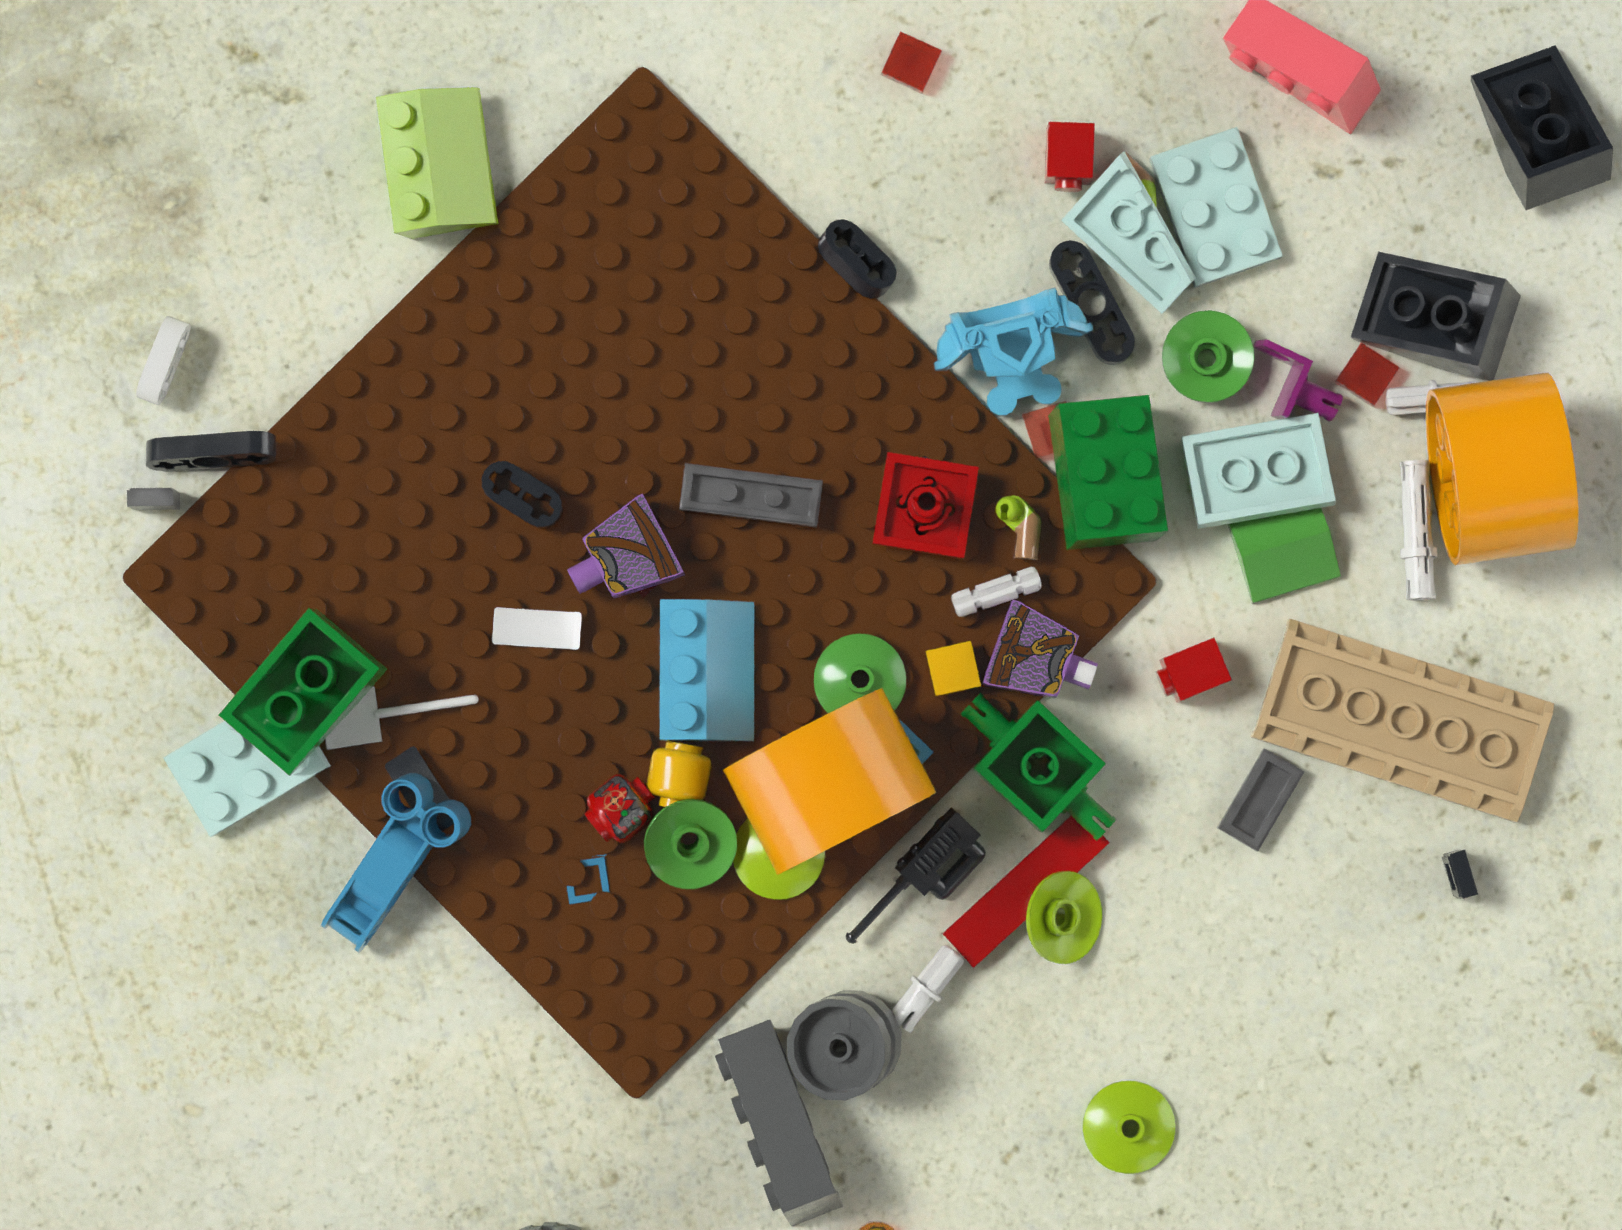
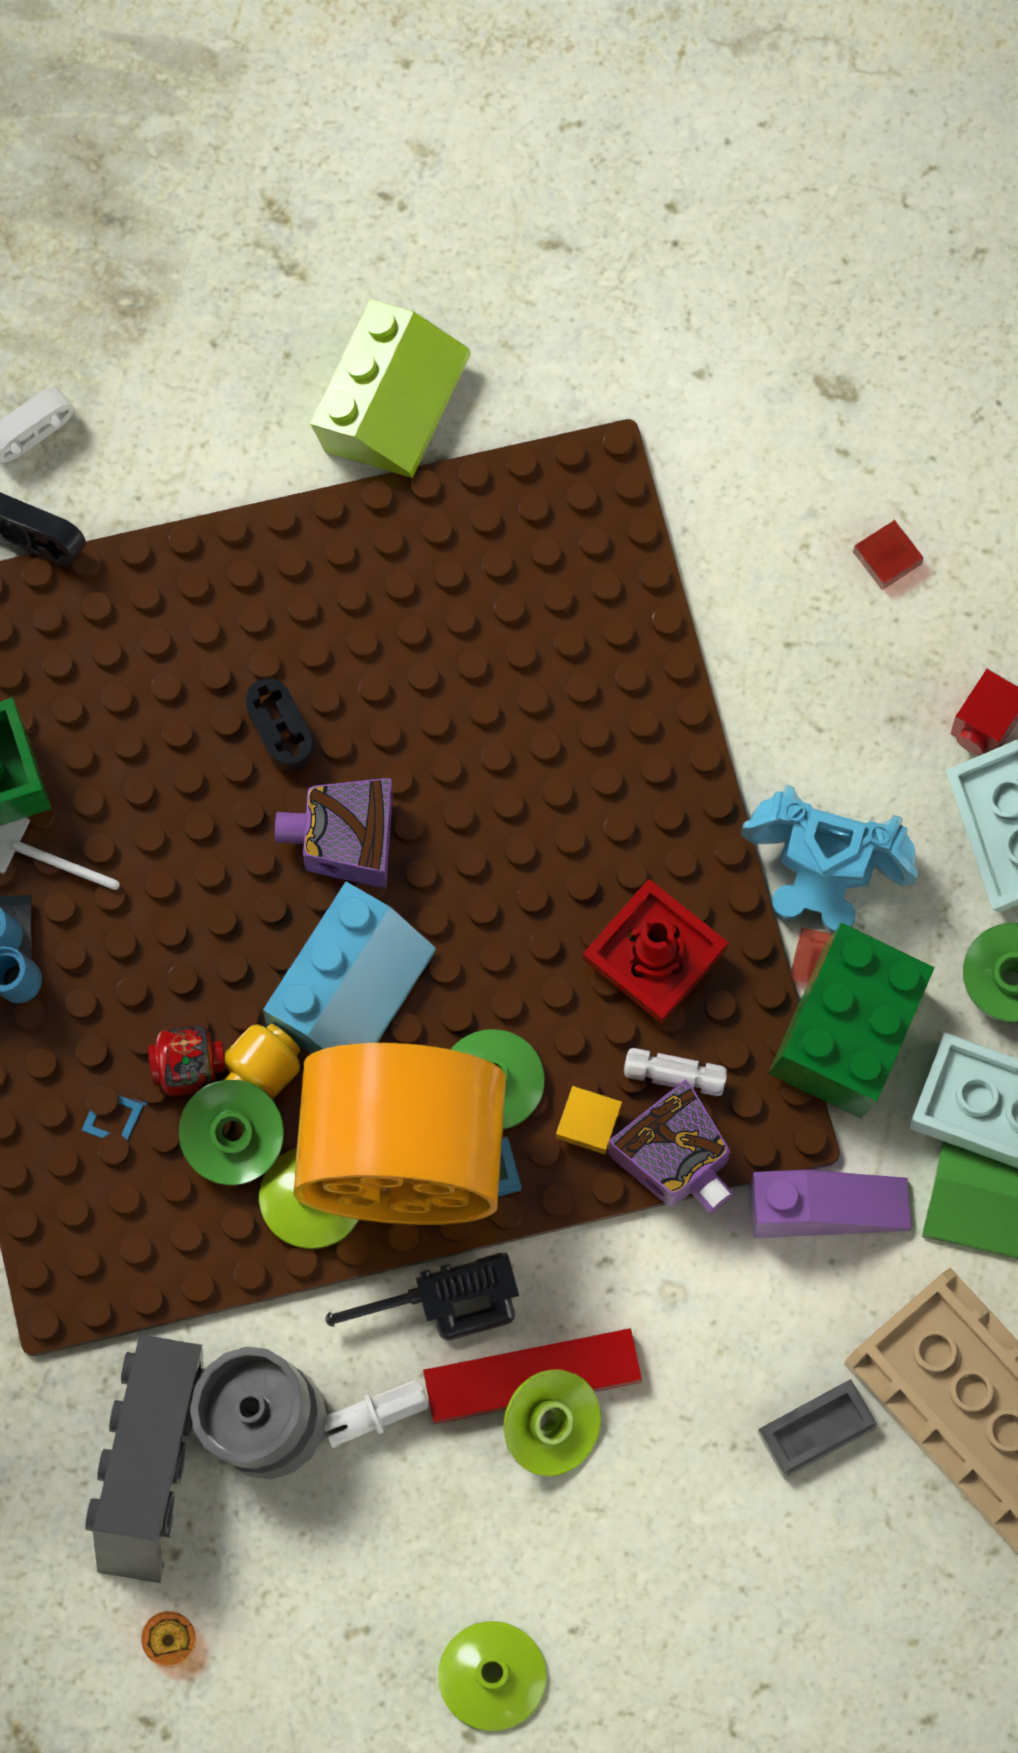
camera: 30 degrees right, 15 degrees down
(536, 628) = (214, 854): white sticker -> none
(751, 495) = (494, 849): flat silver tile -> none
(857, 259) = (729, 696): black beam -> none
(1024, 523) = (741, 1022): arm -> none
(1069, 764) = (634, 1231): green brick -> none
(1087, 266) = (945, 829): black beam -> none
(1172, 623) = (827, 1203): none -> medium lavender slope
(1193, 670) = (824, 1260): red brick -> none
(1459, 874) = (976, 1617): black tile -> none

